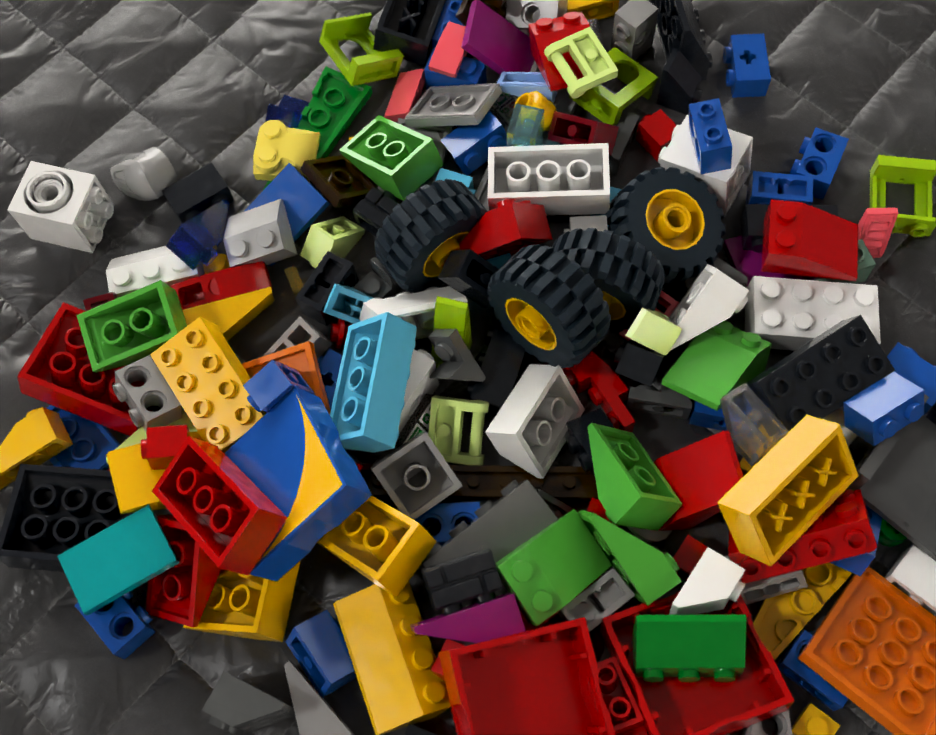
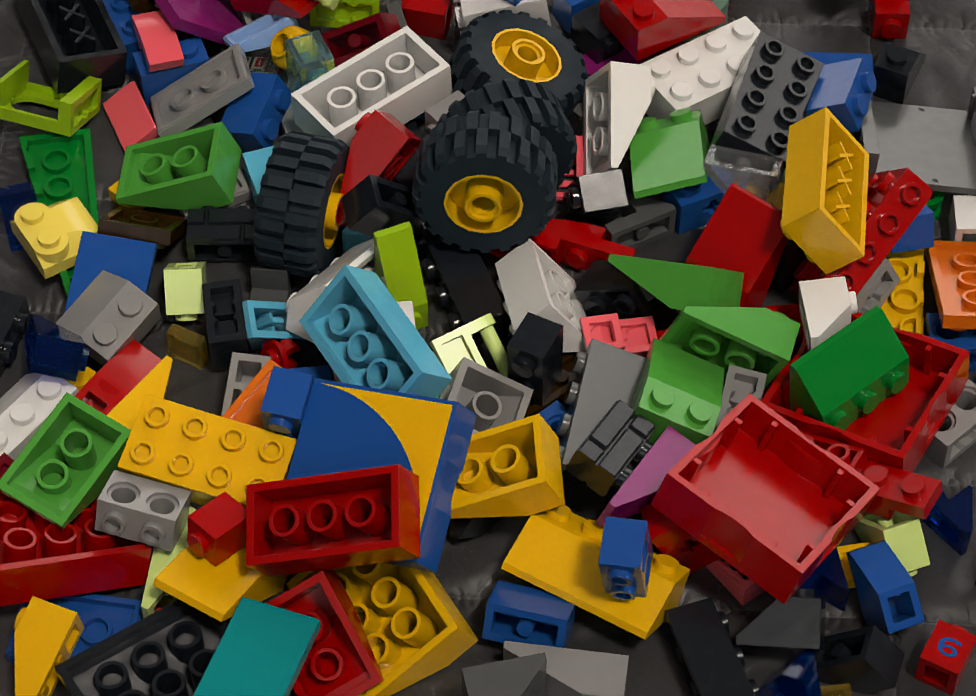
camera: 45 degrees left, 15 degrees down
(388, 679) = (625, 557): none -> blue brick
(457, 359) = (427, 289): dark grey slope -> none
(480, 463) = (536, 356): none -> black brick
(562, 483) = (627, 334): none -> coral slope
(654, 331) = (595, 152): yellowish green slope -> none

